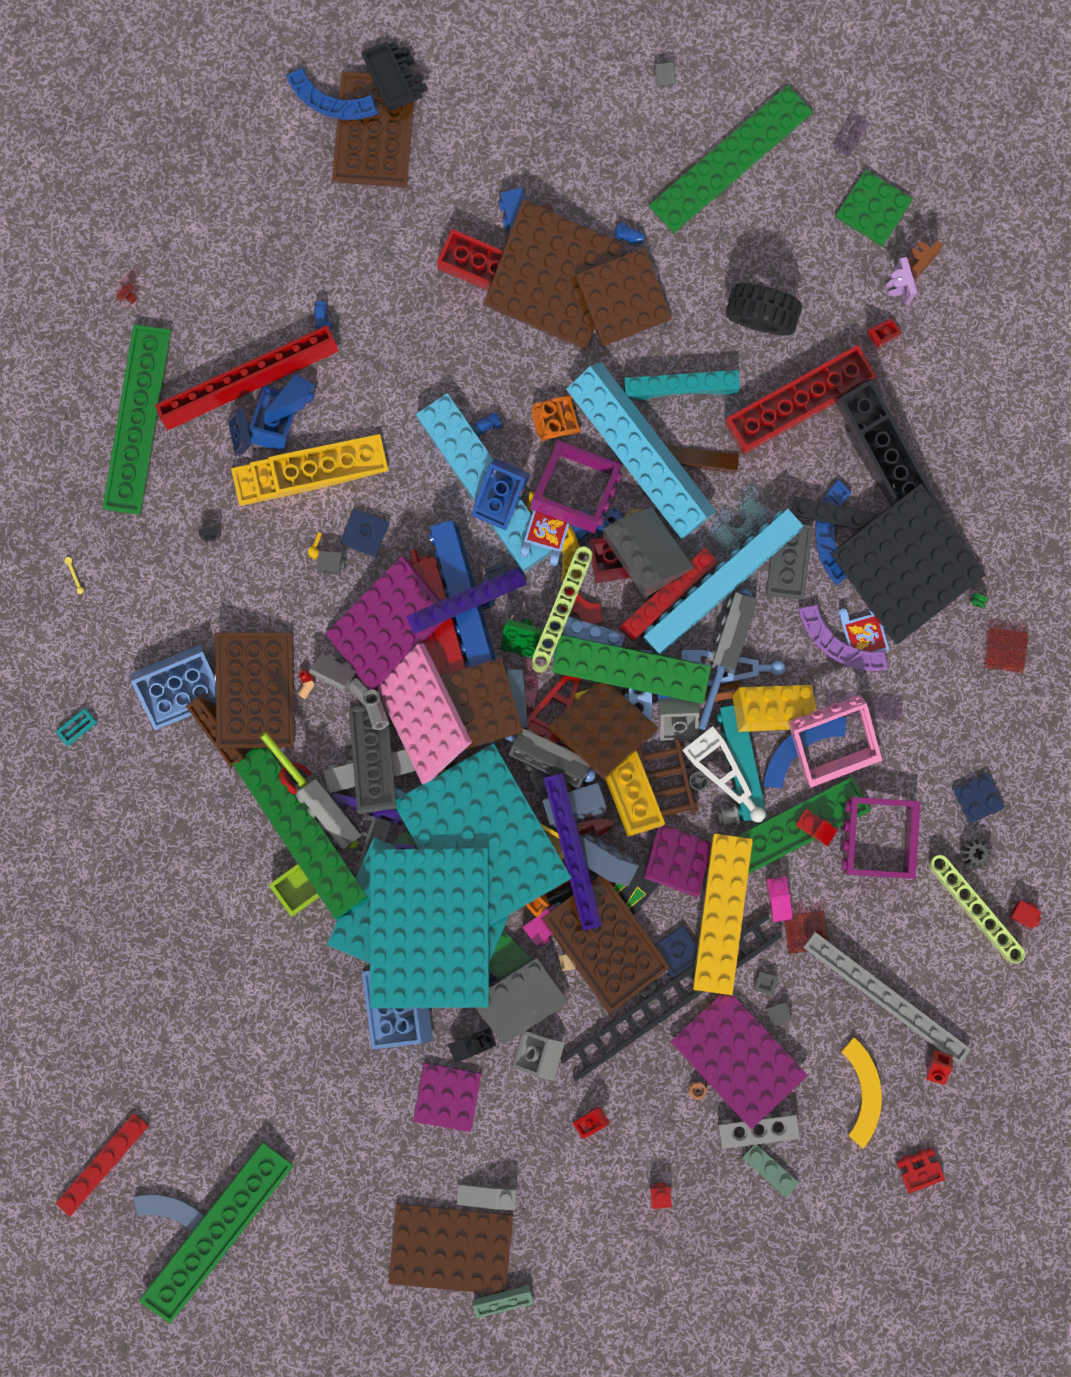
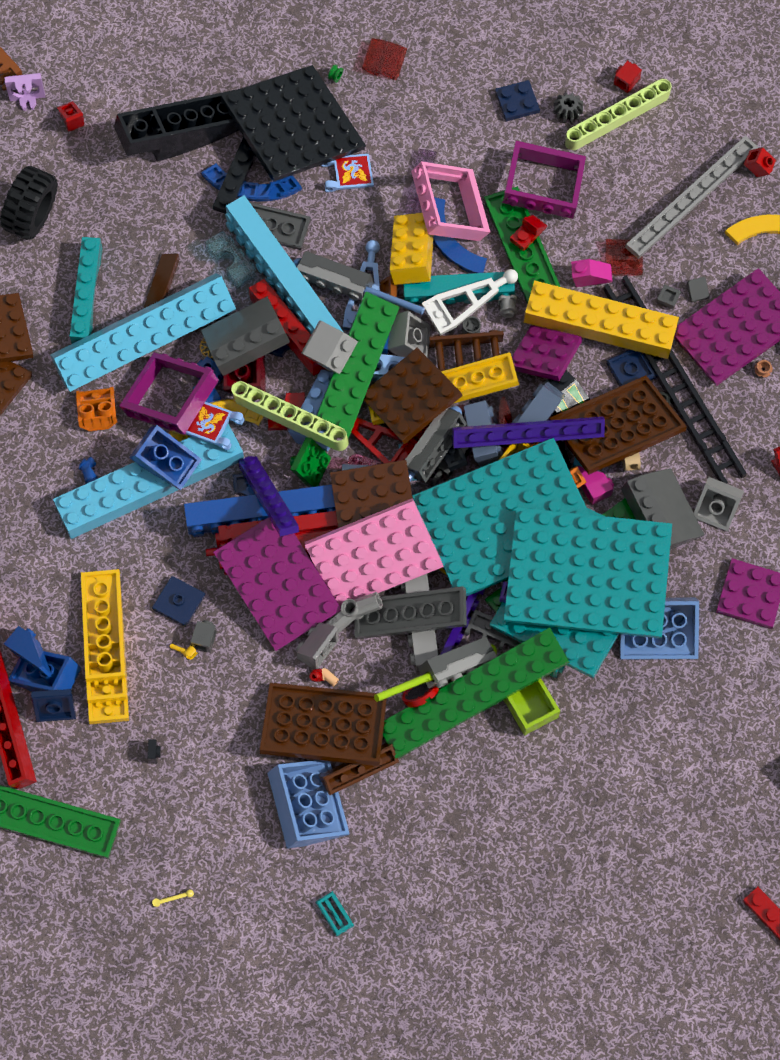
camera: 85 degrees left, 15 degrees down
(471, 1045) = (703, 562): black slope -> none
(638, 638) = (329, 347): none -> light grey slope
(798, 400) = (121, 191): red brick -> none
(837, 649) = (361, 196): medium lavender tile -> none

